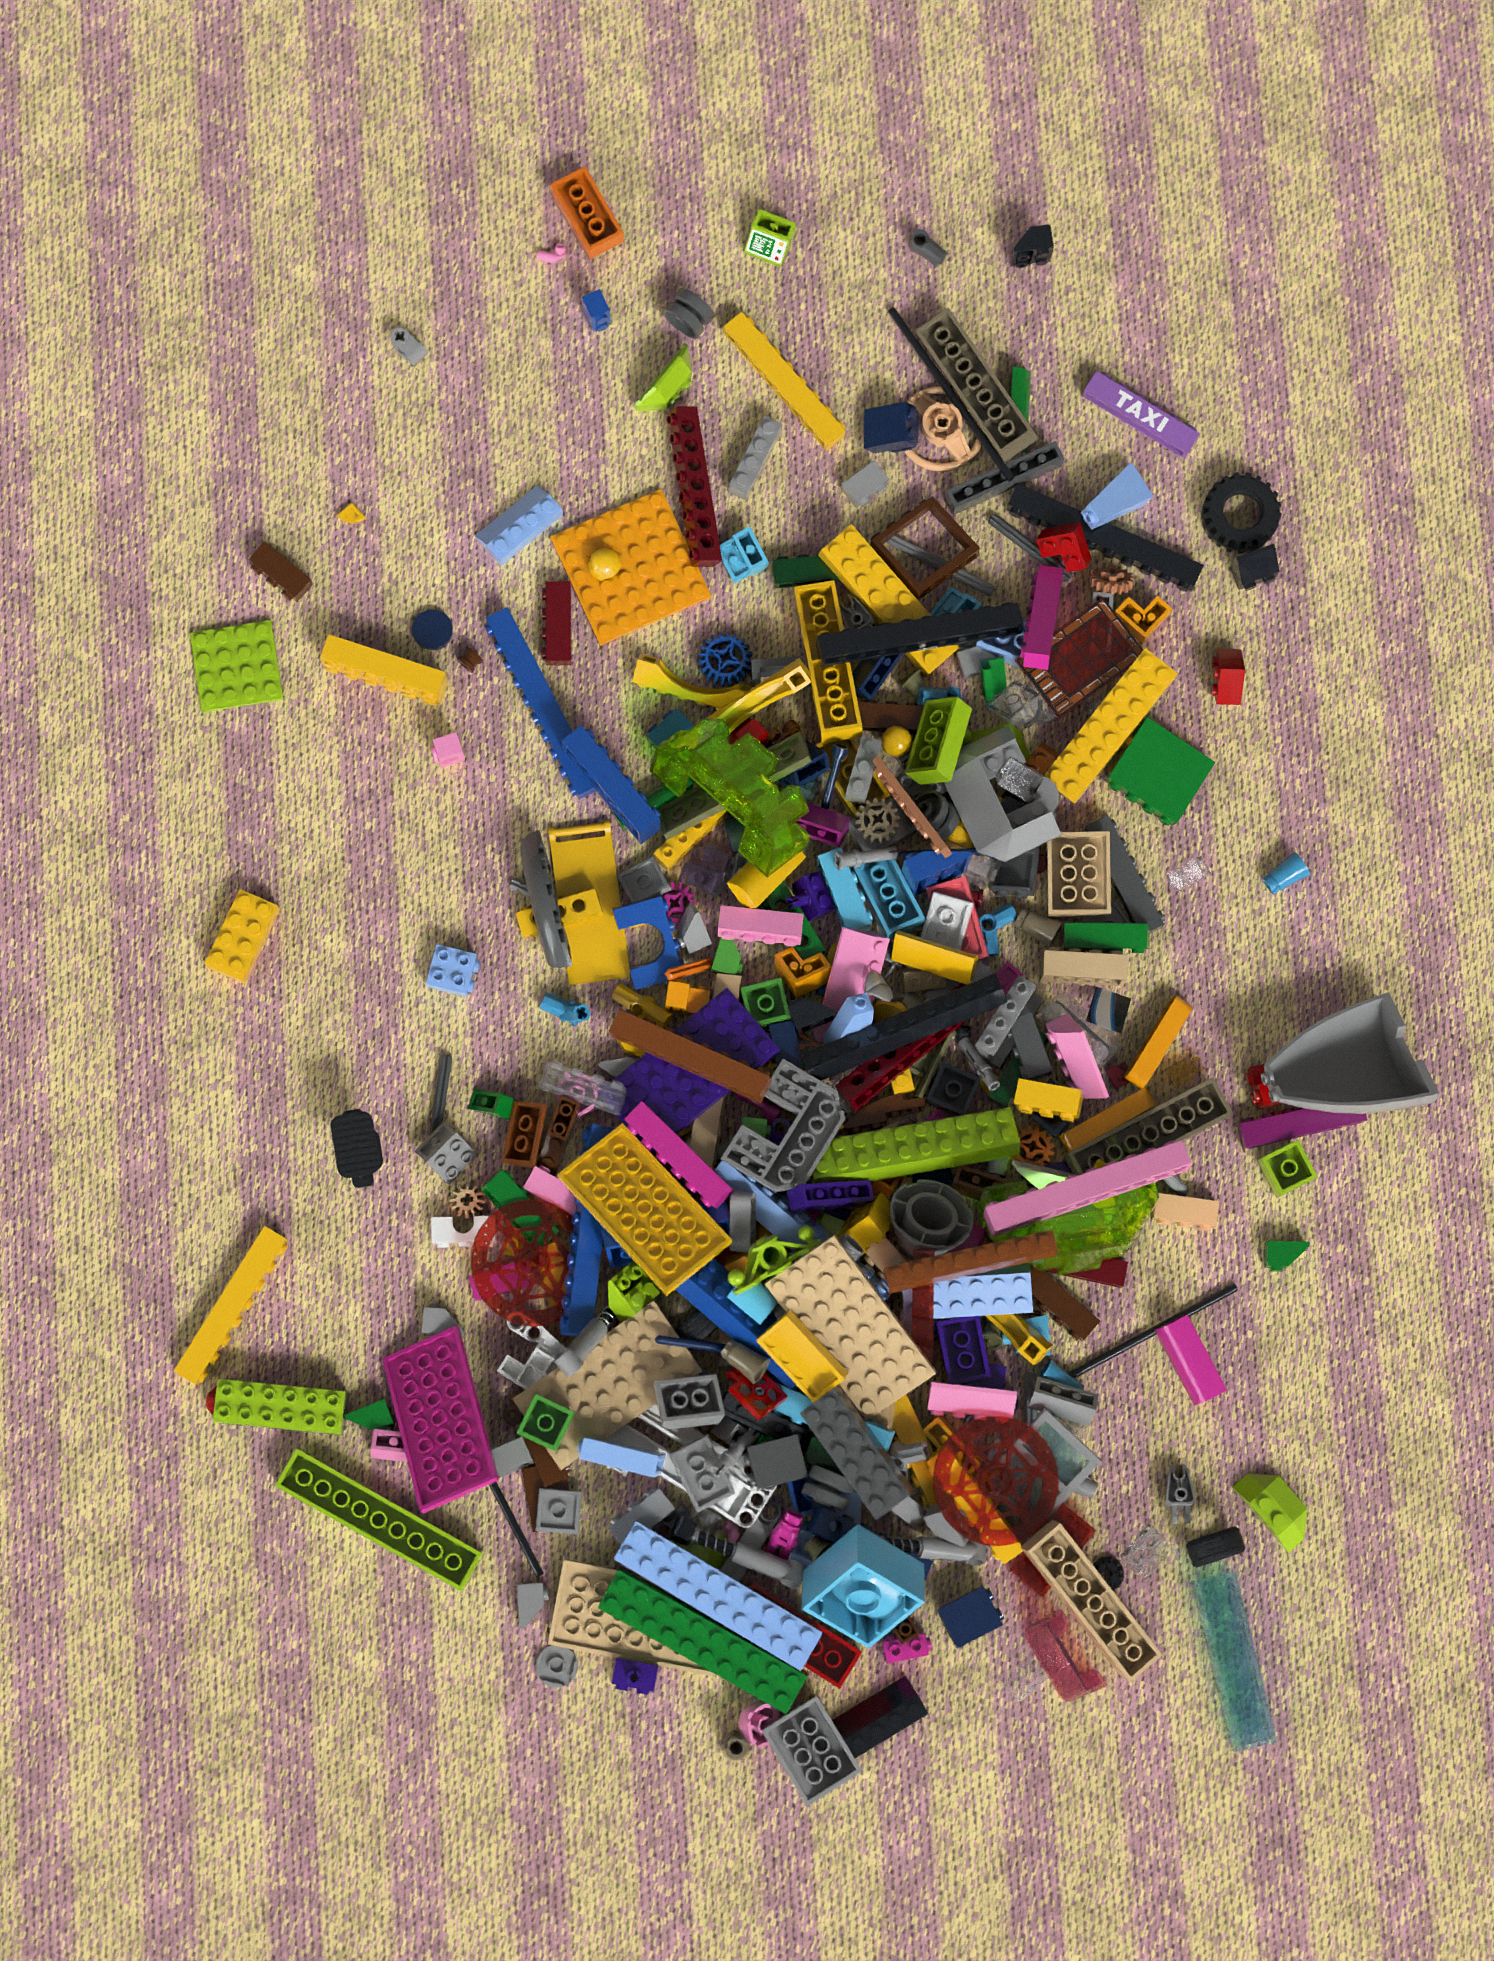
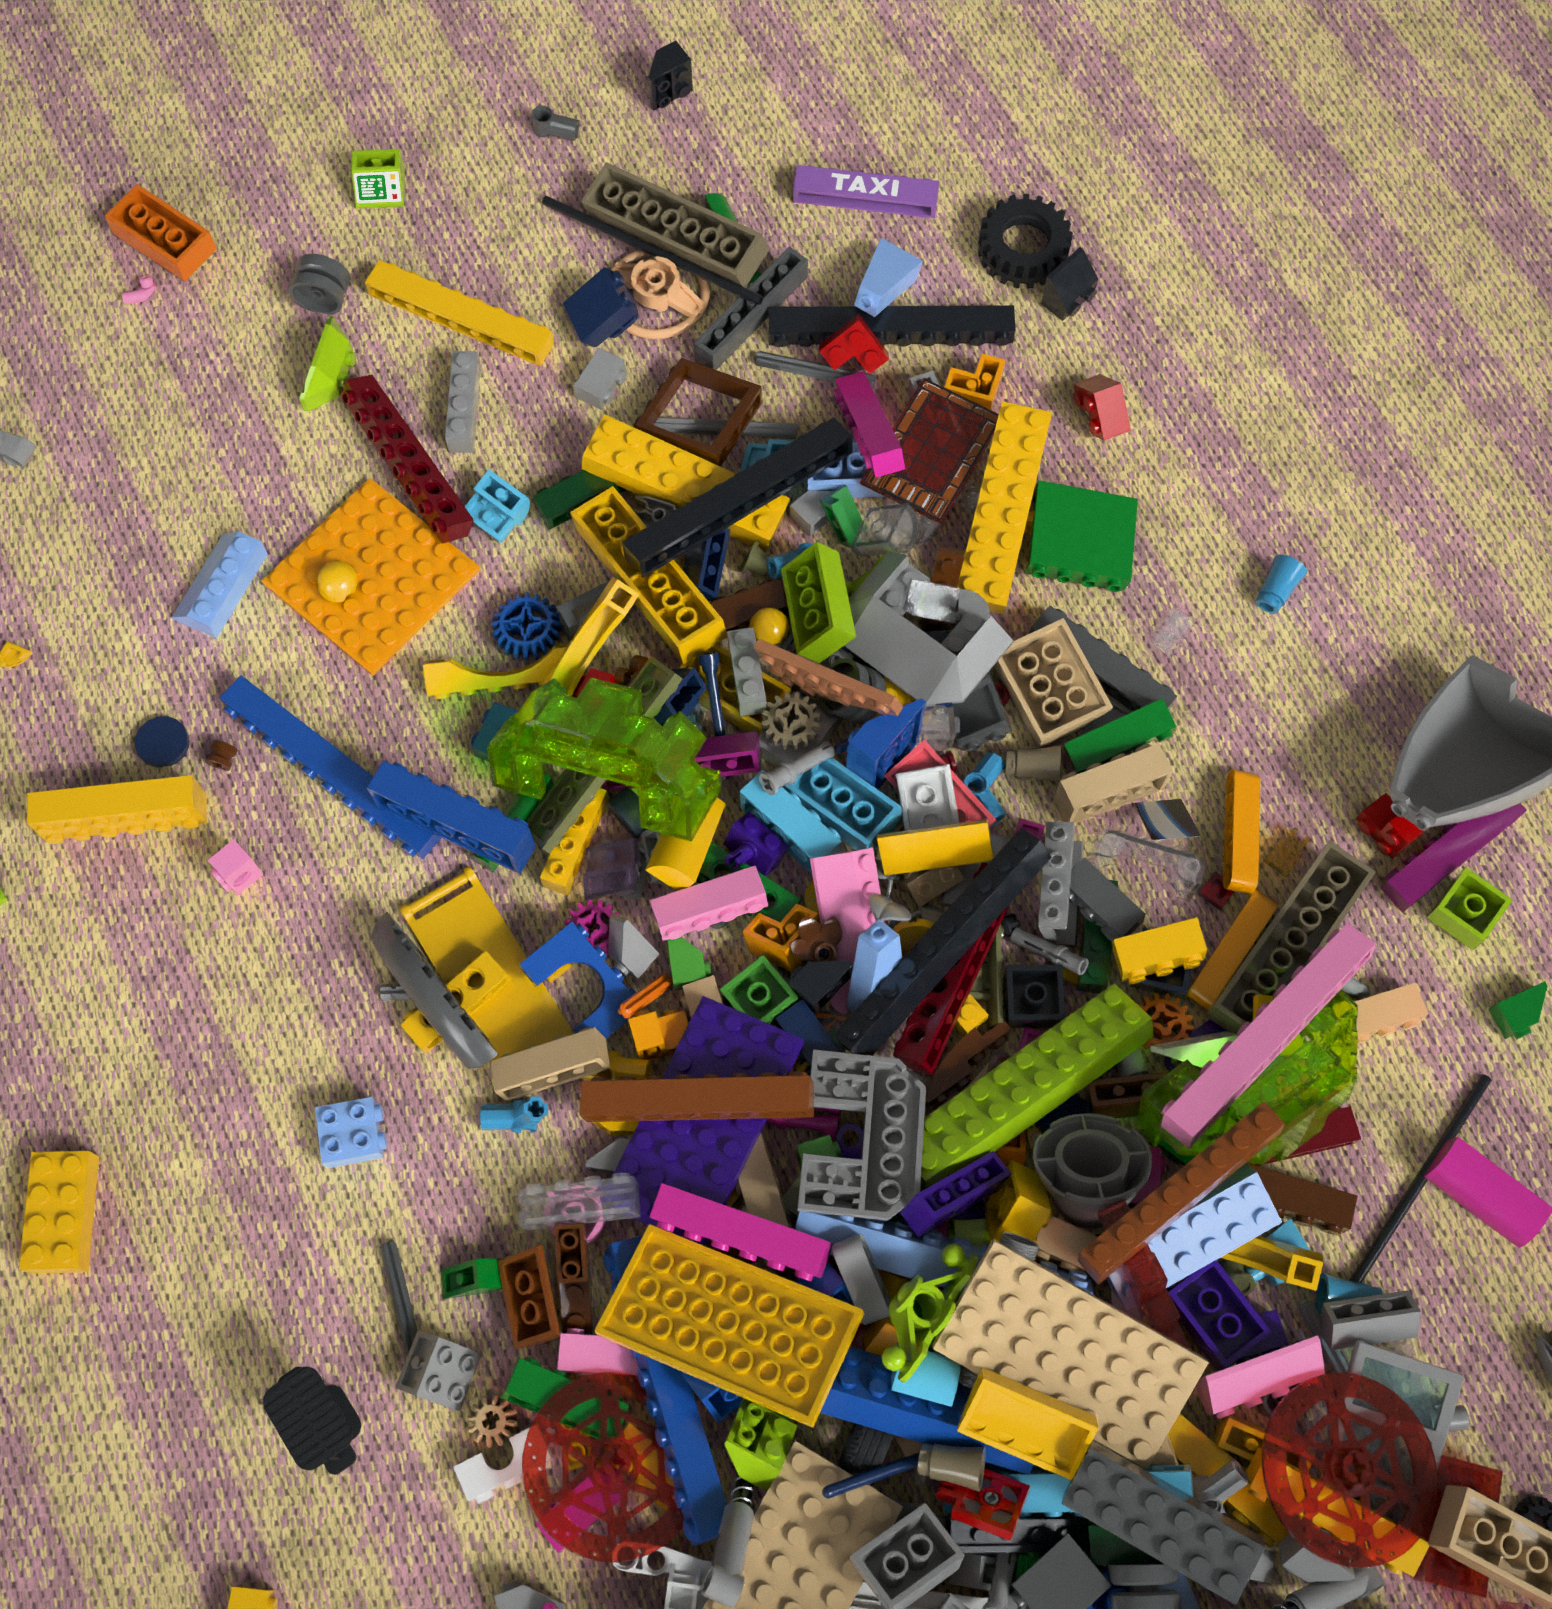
camera: 20 degrees left, 10 degrees down
(558, 623) = (310, 669): dark red brick -> none
(596, 310) = (212, 322): blue brick -> none
(604, 986) = (550, 1064): none -> tan brick
(644, 880) = (543, 916): light grey tile -> none
(821, 982) = (815, 937): none -> reddish brown plate
(1075, 1057) = (1162, 884): bright pink slope -> none
(1111, 580) = (922, 360): nougat gear -> none

